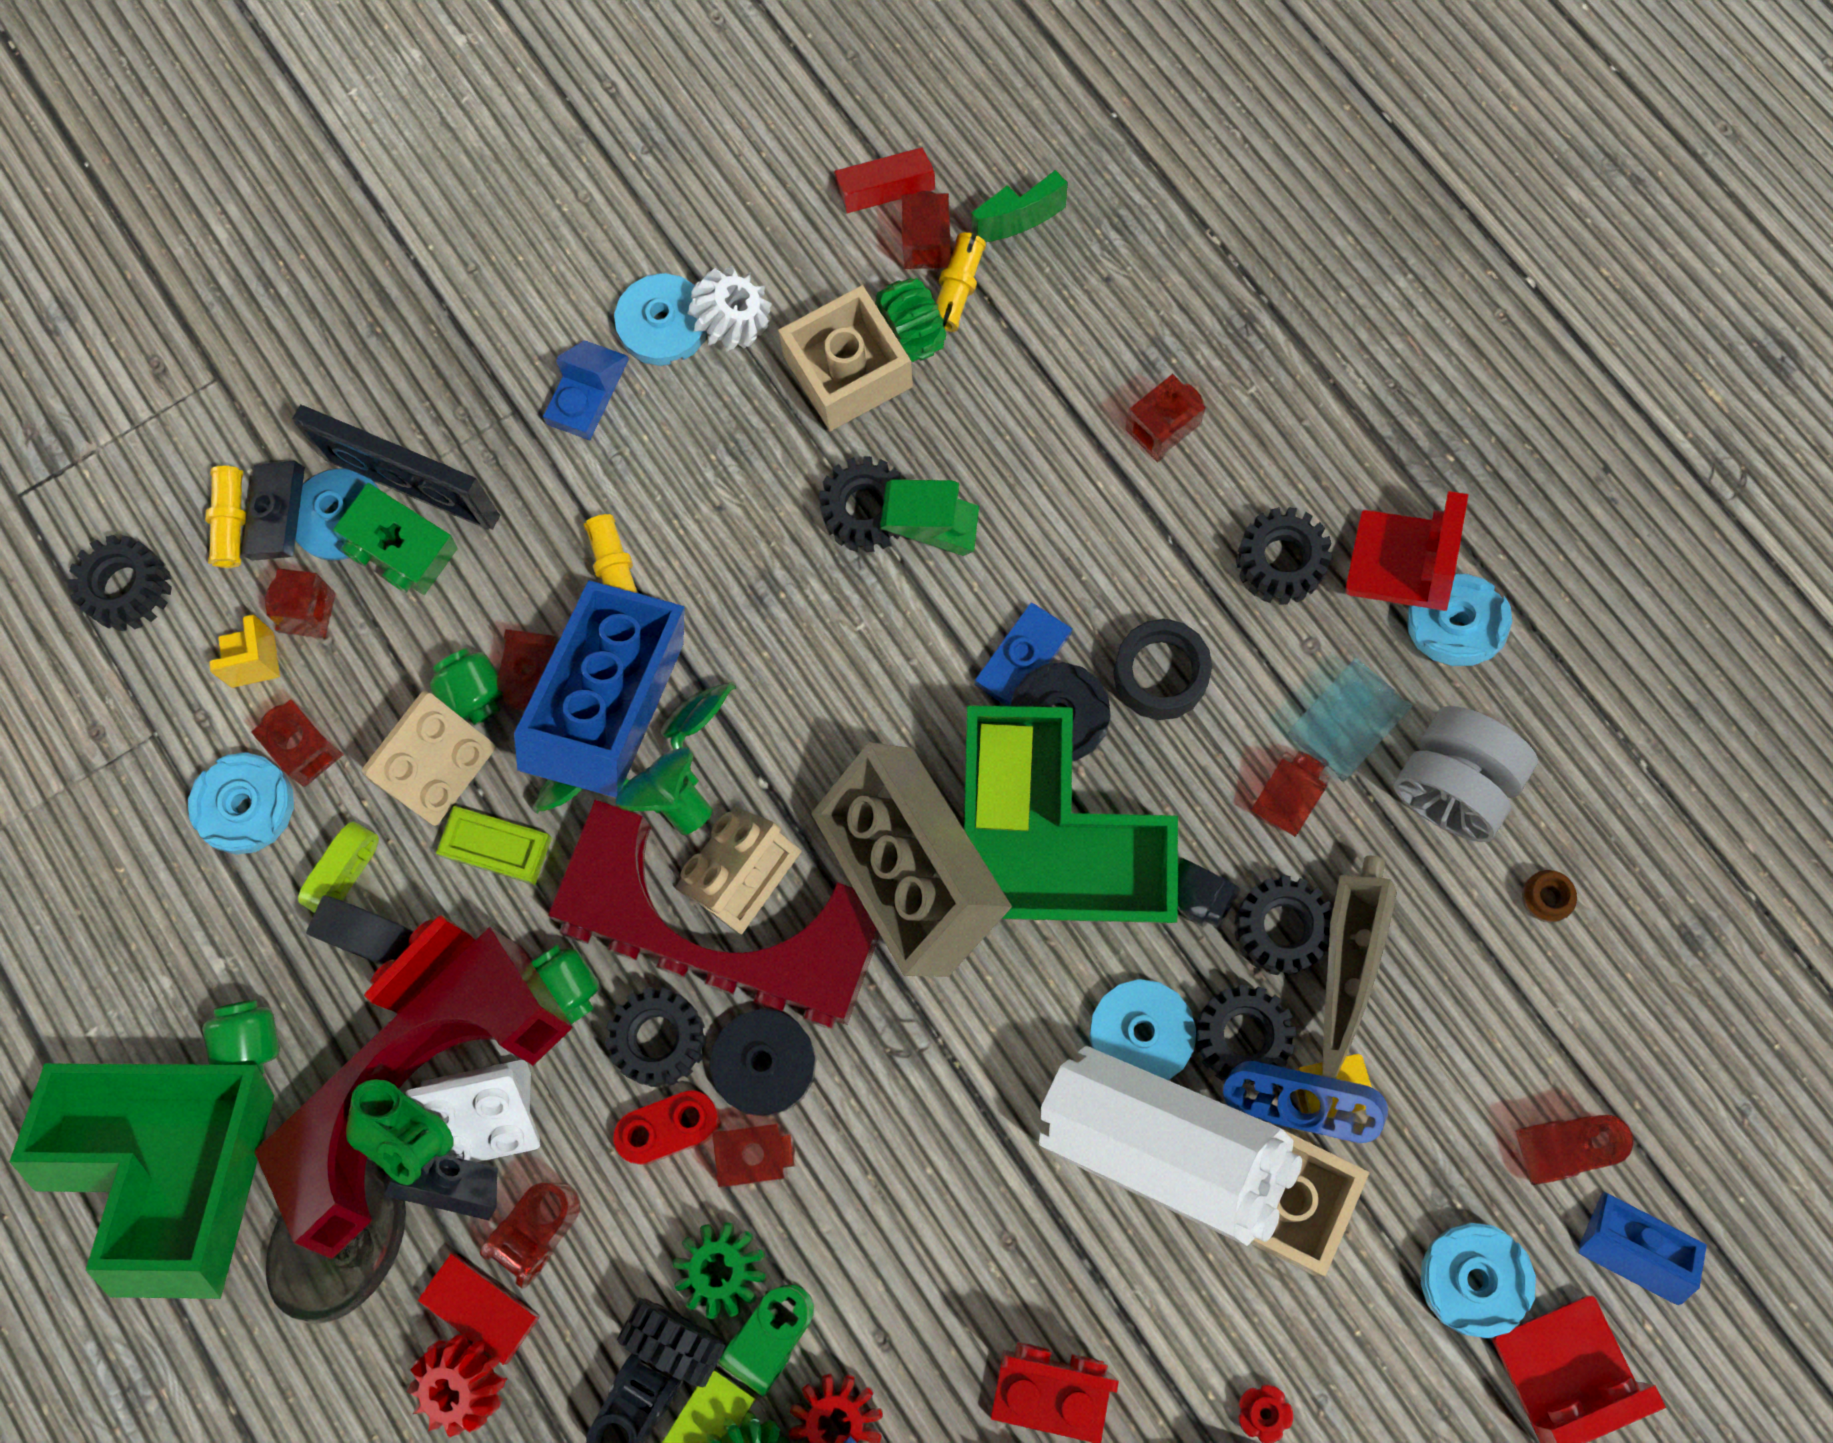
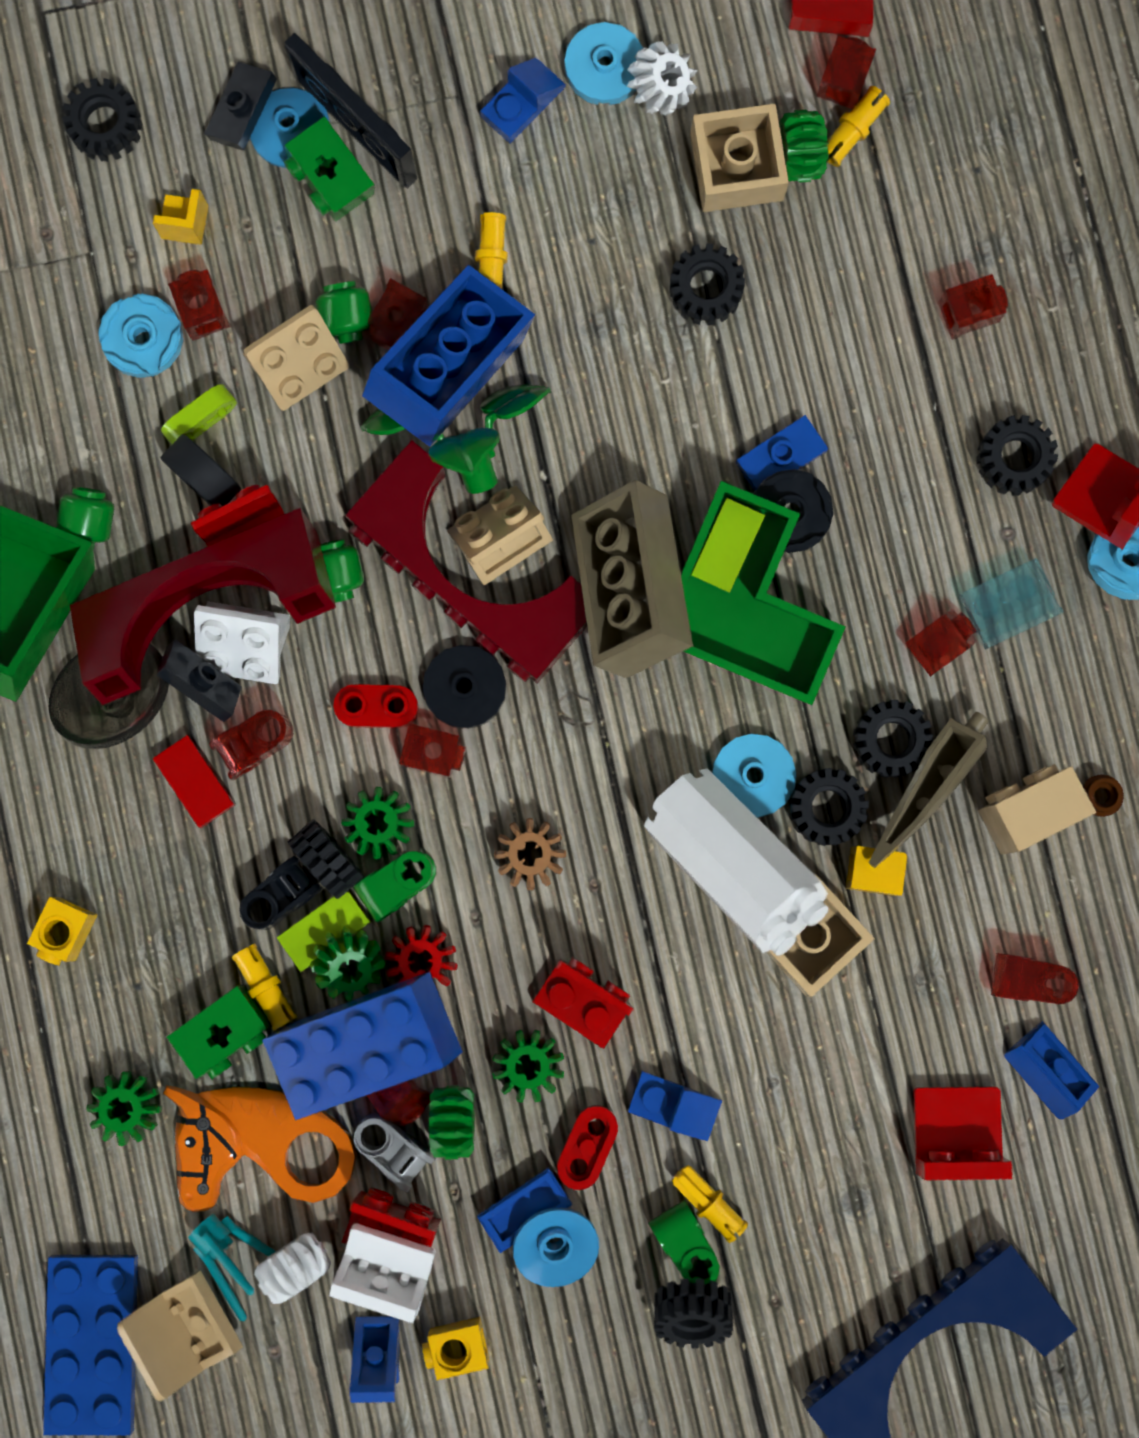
camera: 15 degrees right, 10 degrees up
(225, 516) = (201, 96): yellow pin -> none
(291, 602) = (237, 192): clear red brick -> none
(394, 1130) = (180, 631): green piece -> none
(456, 1385) = (161, 828): red gear -> none
(494, 845) = (321, 443): lime tile -> none
(631, 1017) = (386, 612): black tyre -> none
(900, 1227) = (540, 864): none -> medium nougat gear
(930, 514) = (754, 314): green slope -> none
(1010, 215) = (919, 85): green slope -> none
(1171, 633) = (902, 481): black tyre -> none
(1203, 894) = (841, 692): black piece -> none
(1252, 1403) = (740, 1077): red plate -> none
(1285, 1114) = (868, 867): blue beam -> none
(1466, 773) = (1078, 679): light grey wheel -> none
(1487, 942) = (1037, 810): none -> tan brick
(1506, 1273) = (944, 1048): medium azure plate -> none

